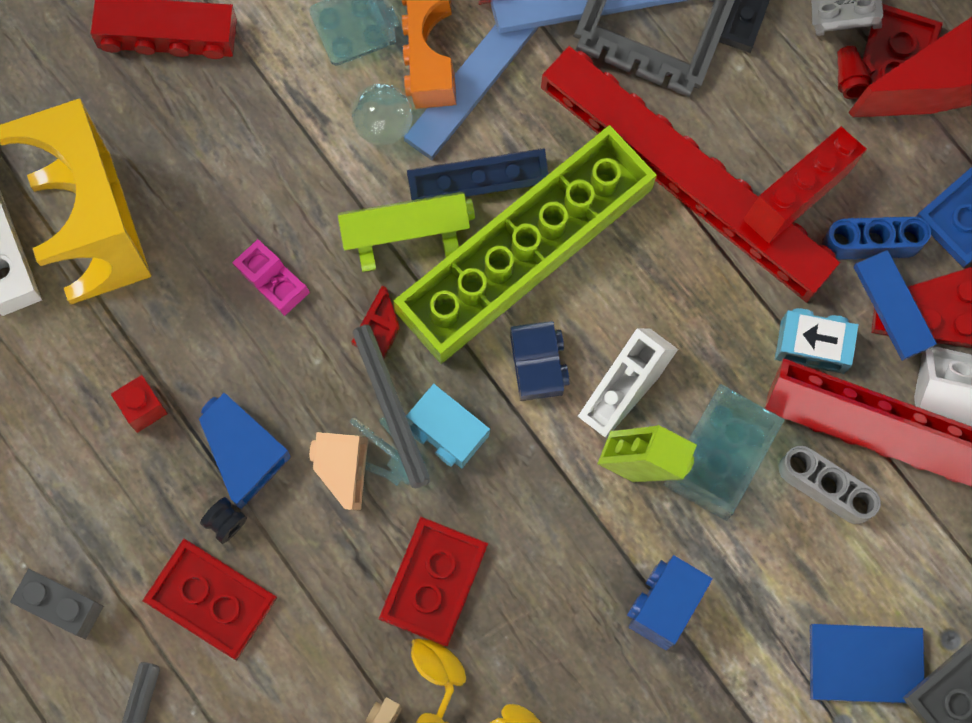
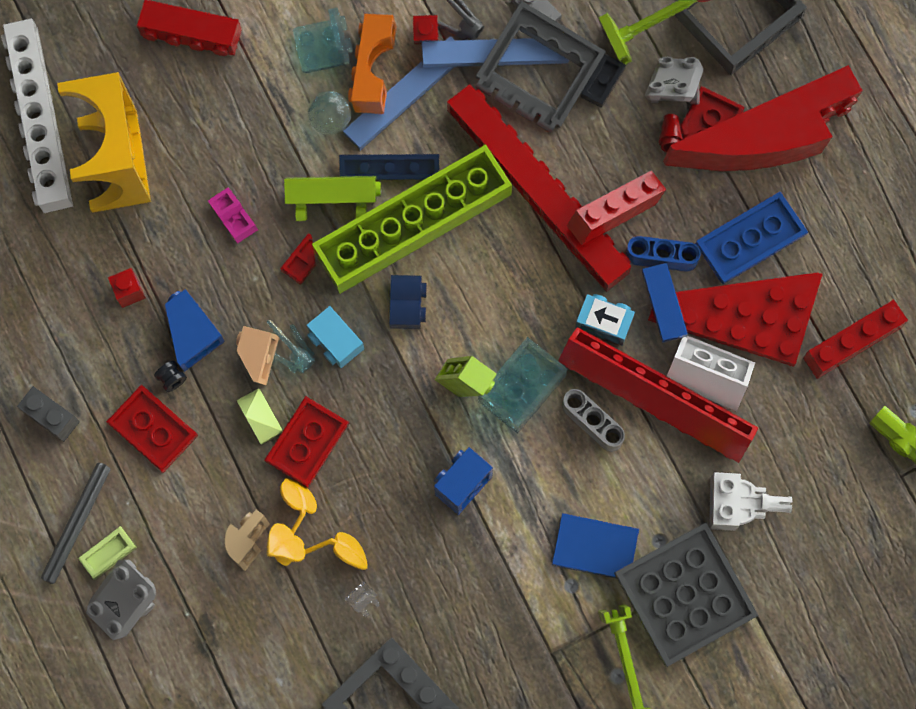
camera: 15 degrees right, 0 degrees up
(360, 556) = (260, 416): none -> yellowish green slope
(391, 407) = (297, 316): dark grey axle -> none
(627, 380) = (467, 324): white slope -> none

